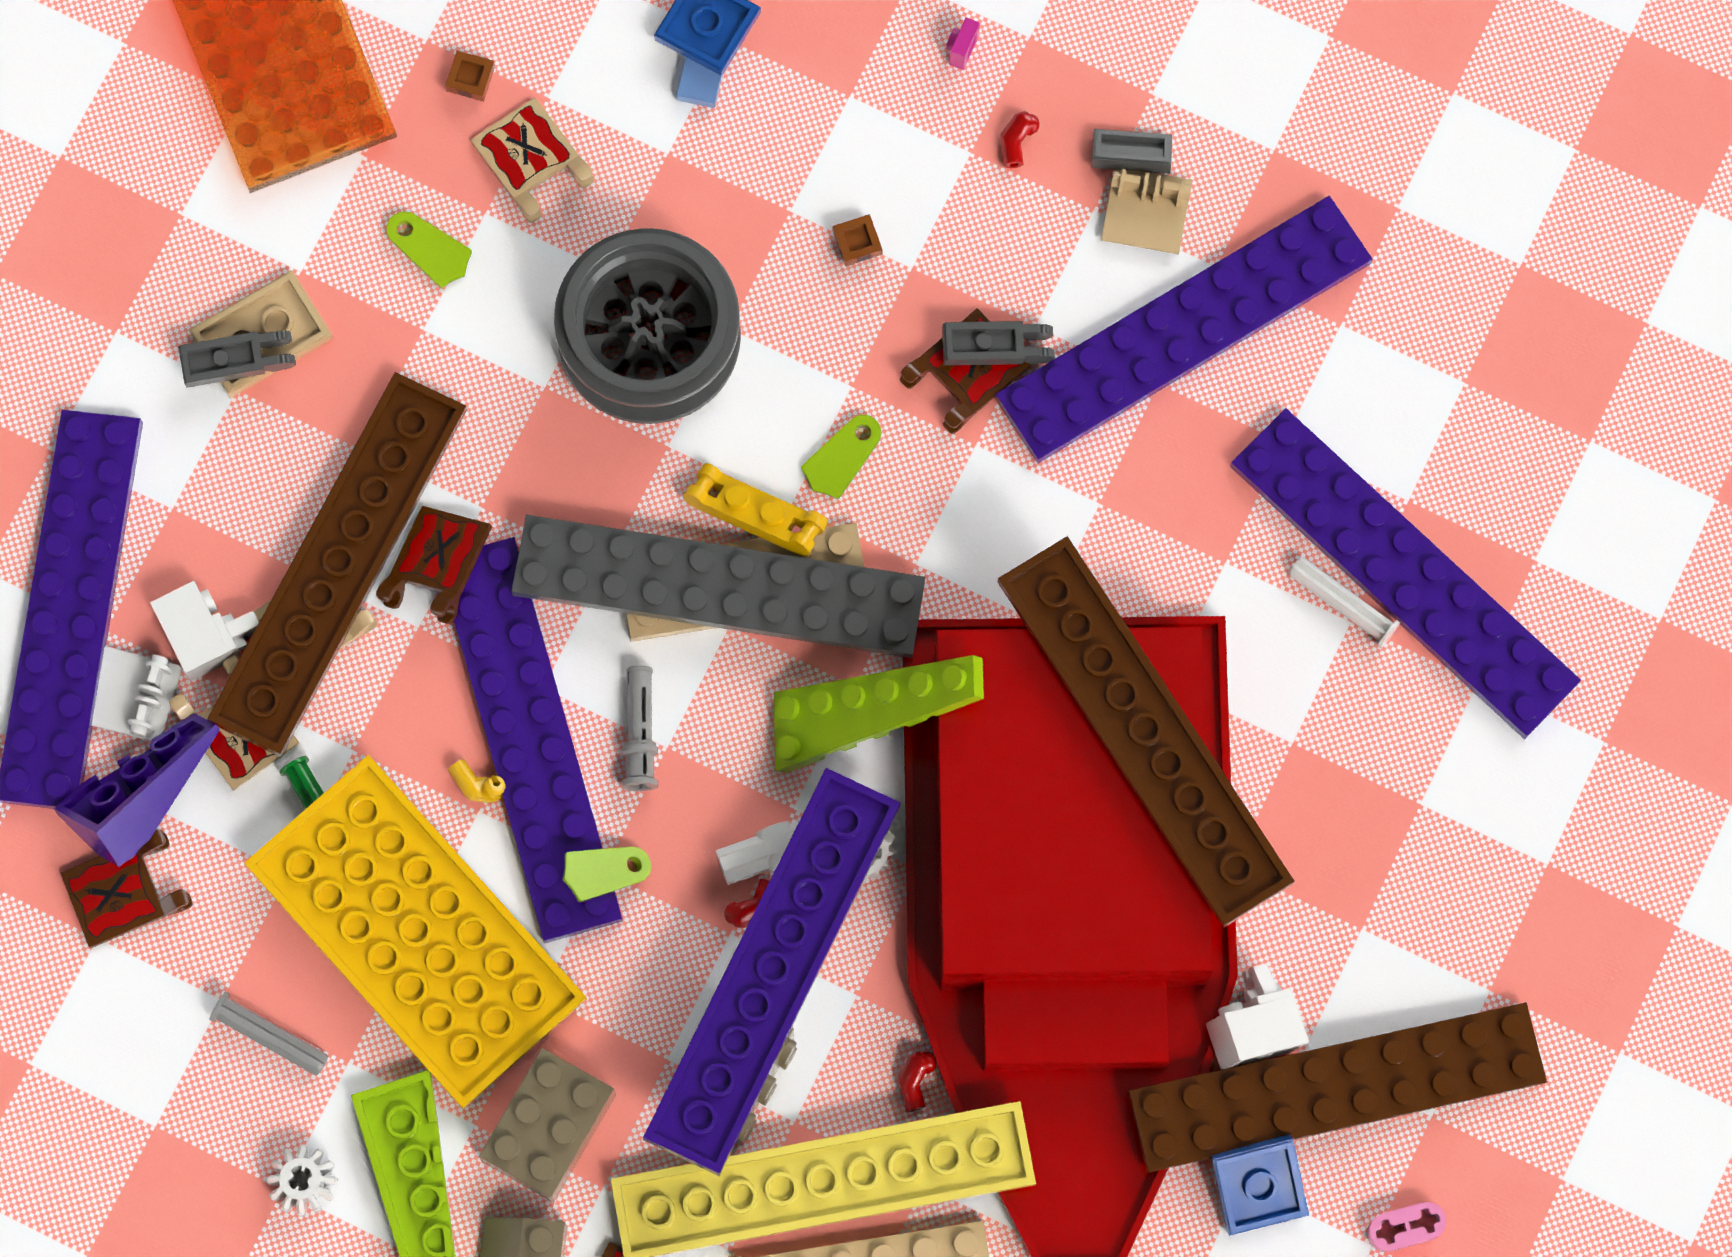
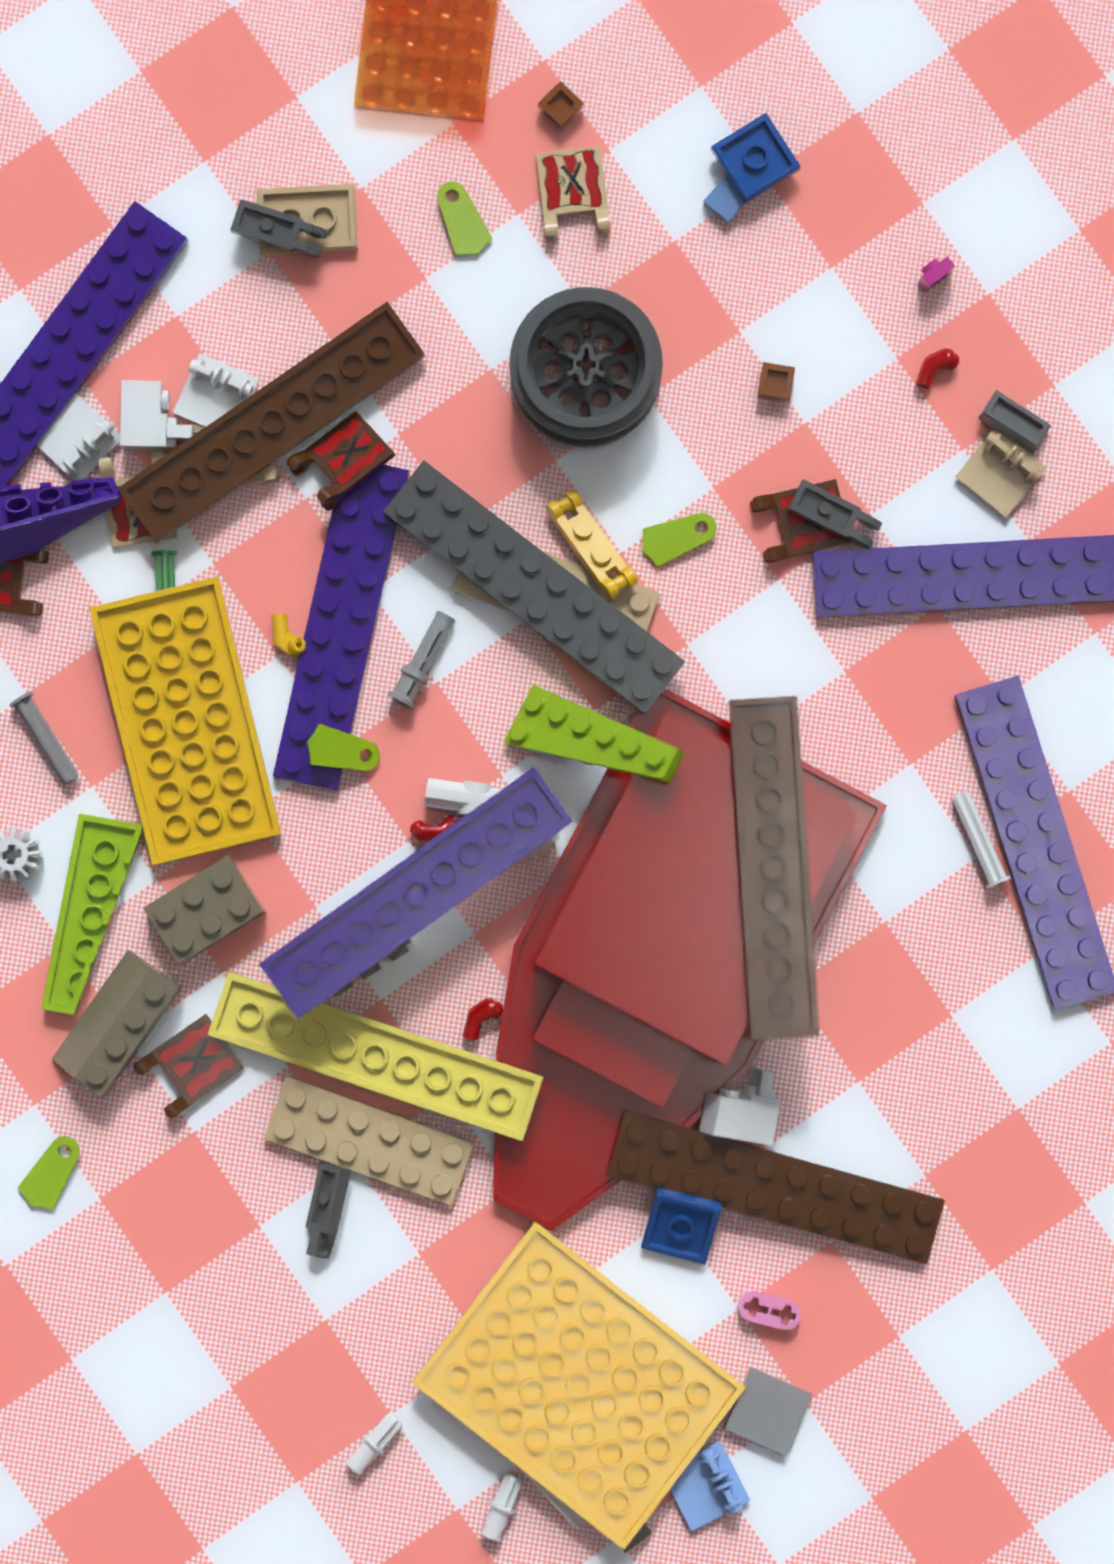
camera: 30 degrees right, 10 degrees up
(254, 565) = (212, 390): none -> white hinge

